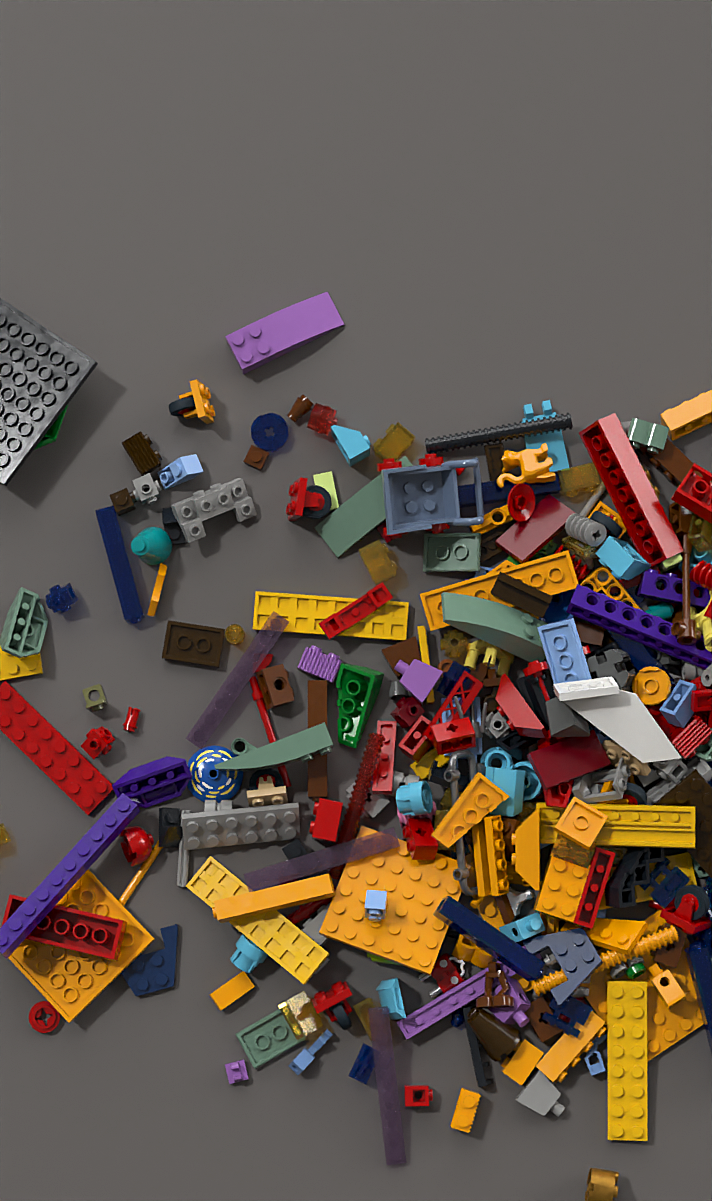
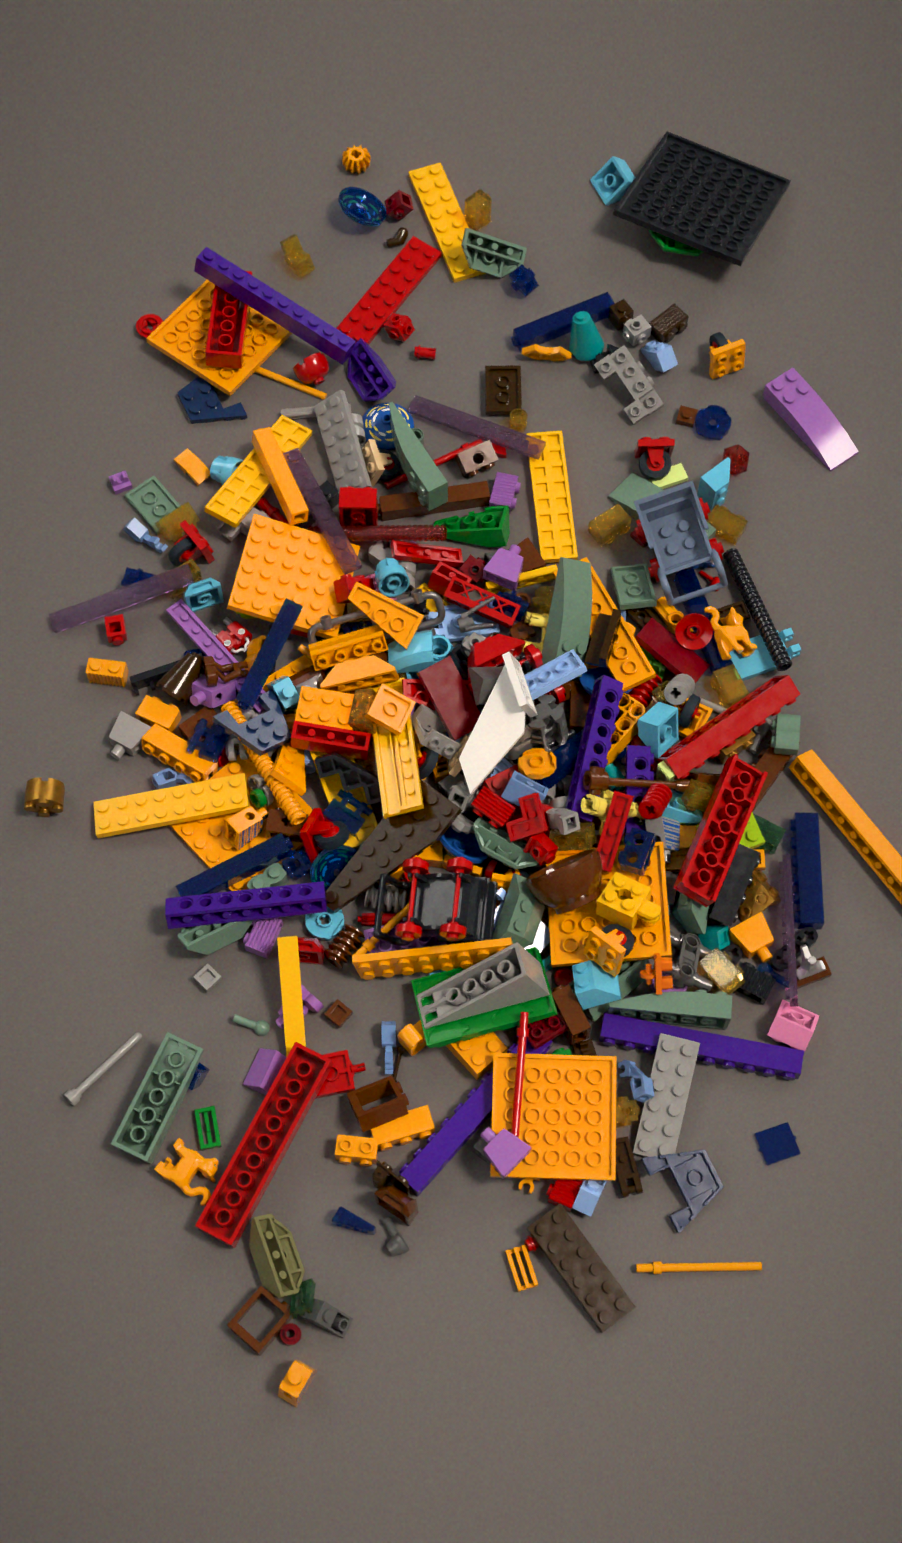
camera: 80 degrees right, 15 degrees down
(94, 705) = (432, 322): olive bracket -> none
(169, 827) = (324, 392): black slope -> none
(301, 407) = (745, 442): reddish brown cone -> none
(356, 611) = (557, 510): red slope -> none
(375, 905) = (285, 549): light blue slope -> none
(453, 736) = (455, 595): red brick -> none

